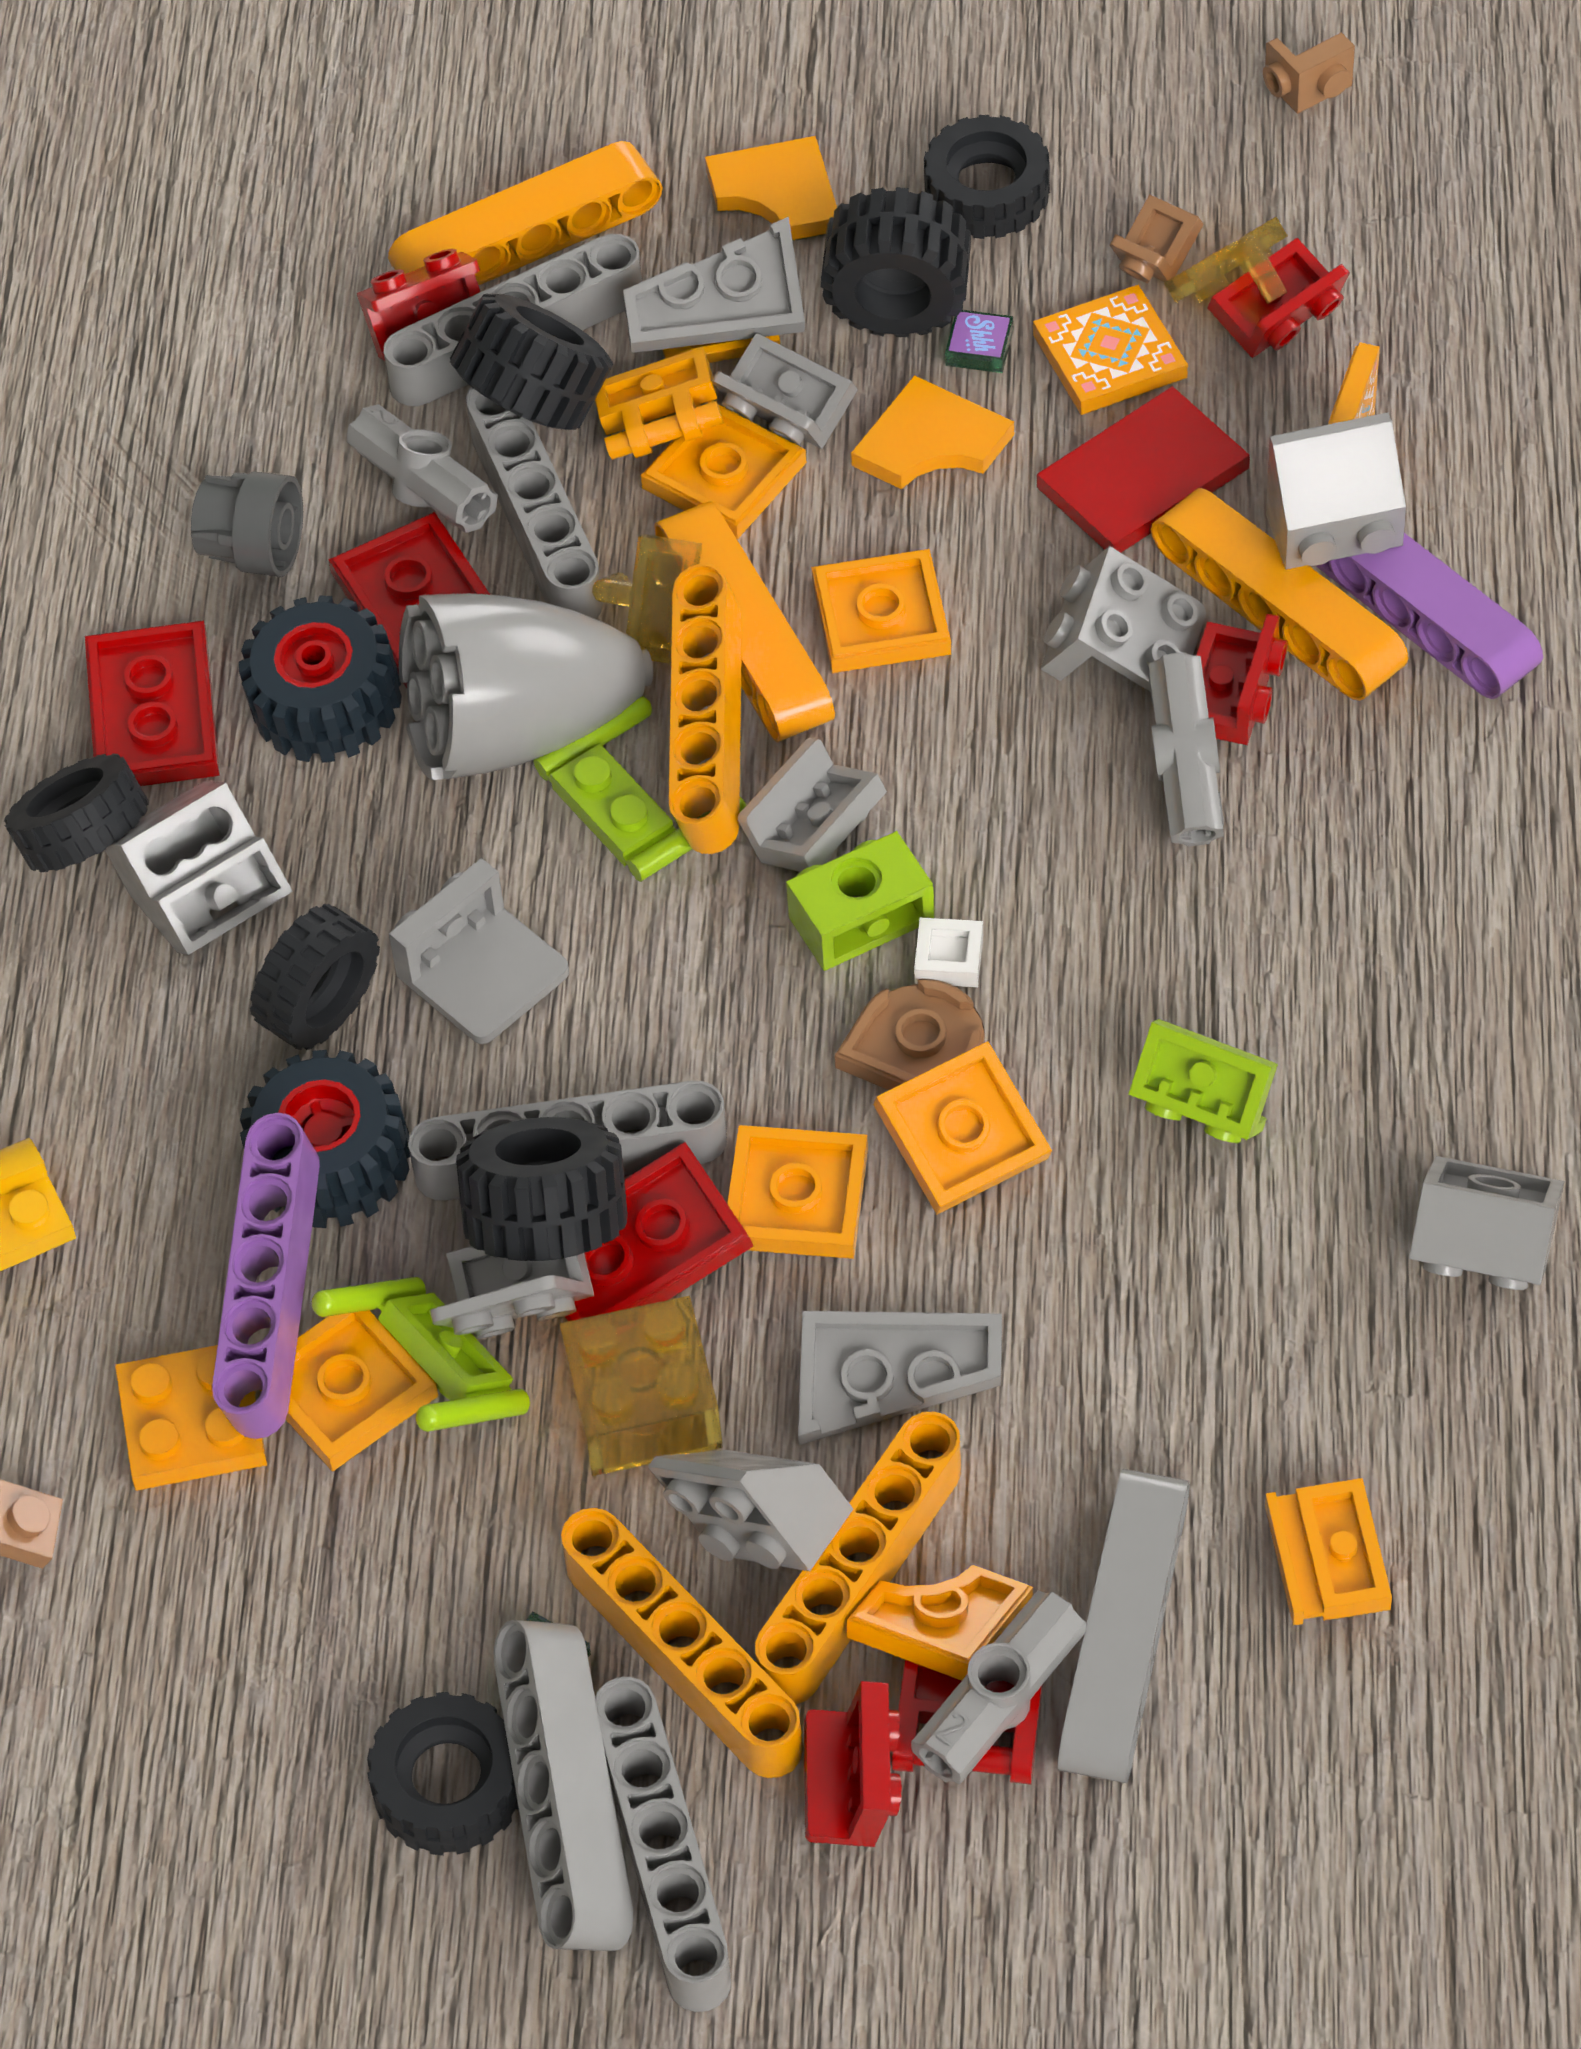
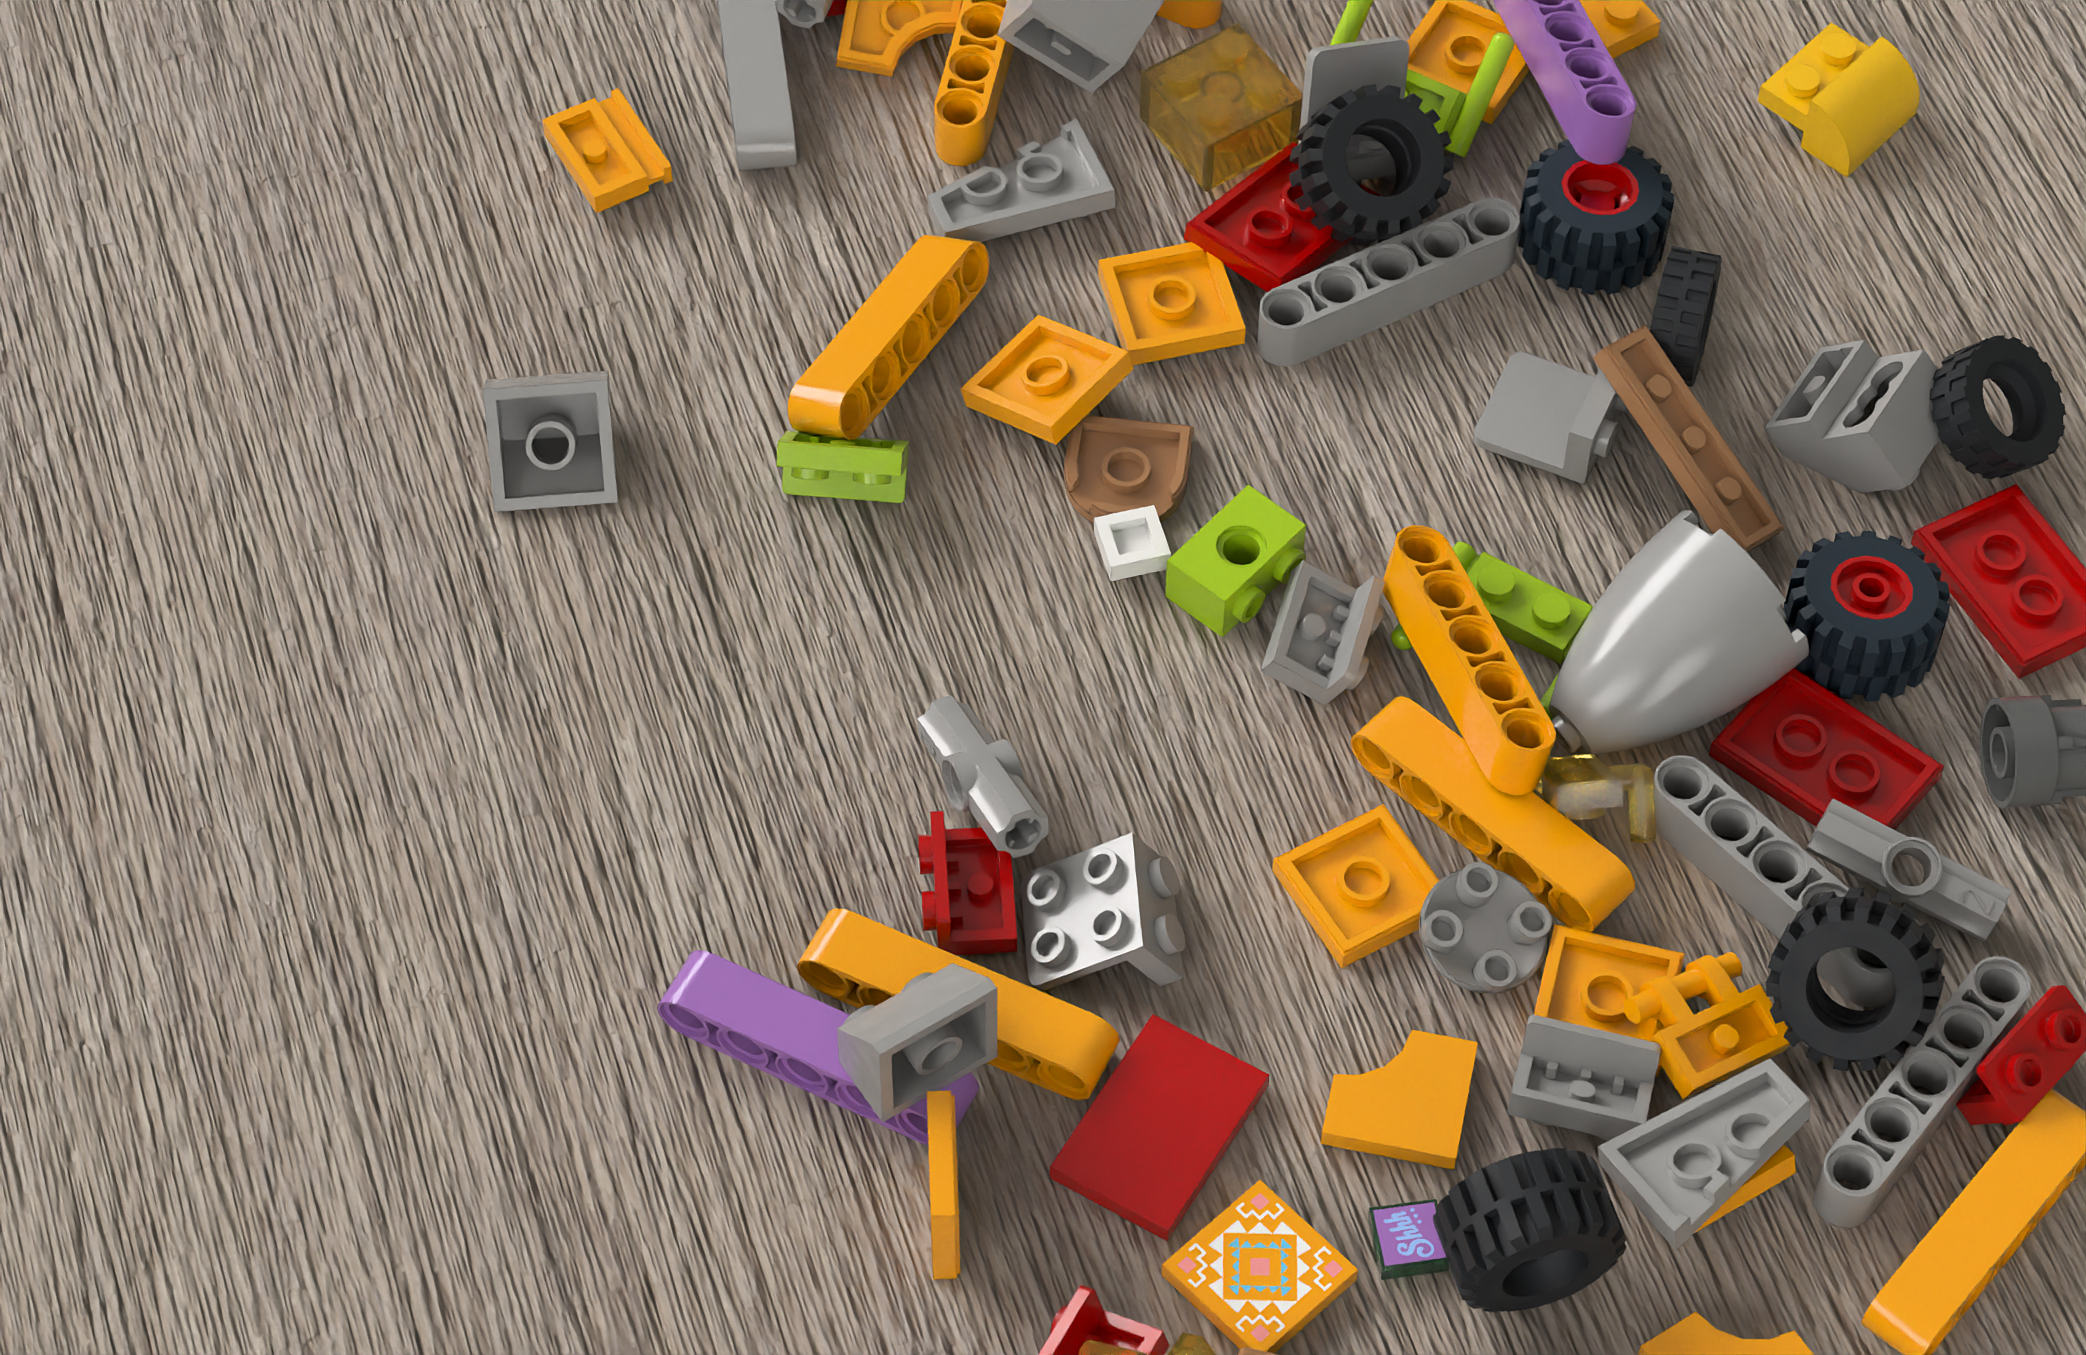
camera: 155 degrees right, 0 degrees up
(384, 860) = (1687, 439): none -> medium nougat tile
(798, 533) = (1484, 929): none -> light grey dish
(1105, 1200) = (888, 337): none -> light orange beam

